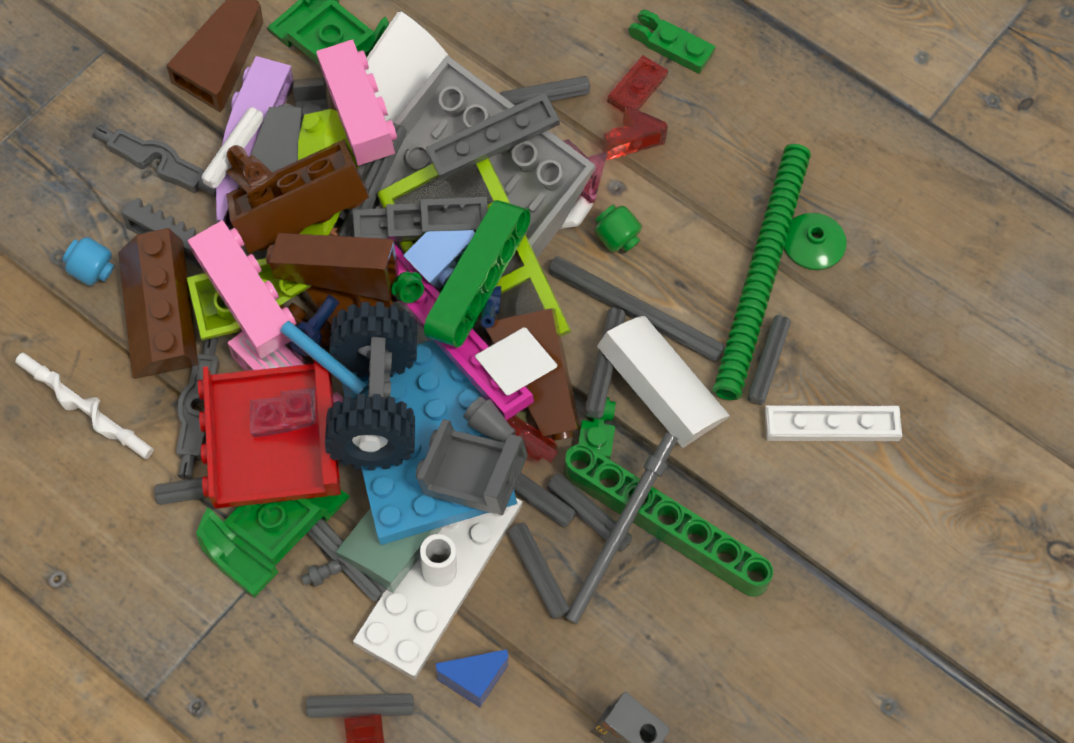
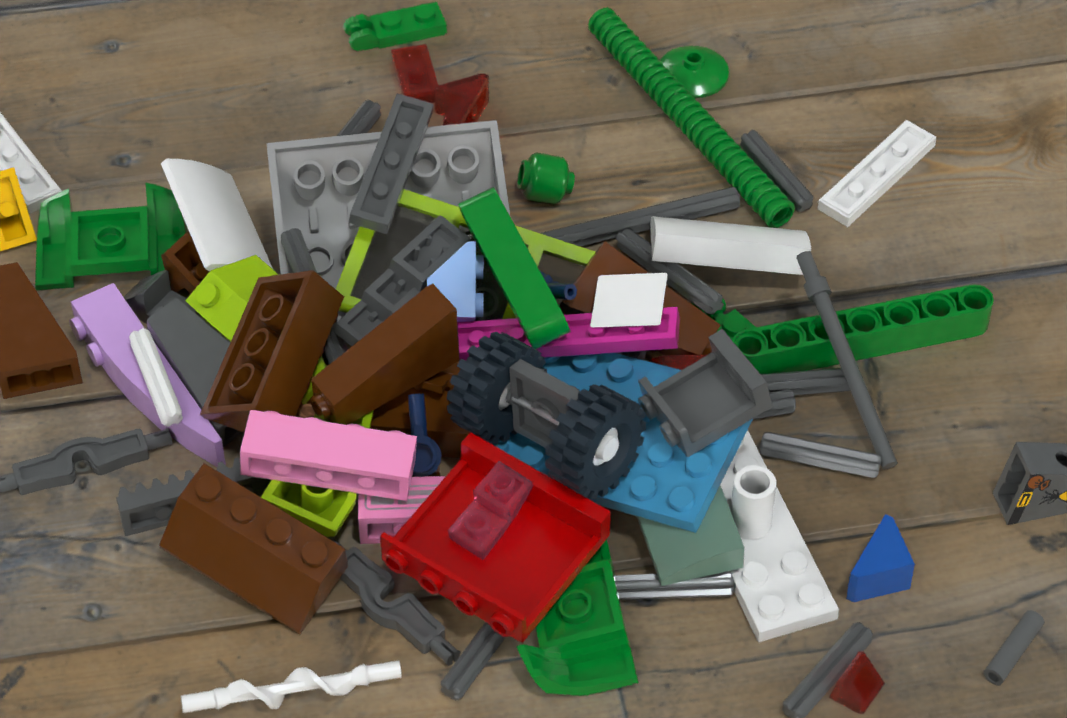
camera: 45 degrees left, 15 degrees down
(88, 261) = (136, 580): dark azure head -> none
(248, 171) = (206, 371): reddish brown hinge -> none
(318, 574) = (663, 617): dark grey piece -> none
(323, 358) = (476, 433): dark azure bar -> none
(356, 102) = (232, 239): bright pink brick -> none
(408, 287) = (468, 332): green plate -> none
(488, 420) = (667, 357): dark grey cone -> none

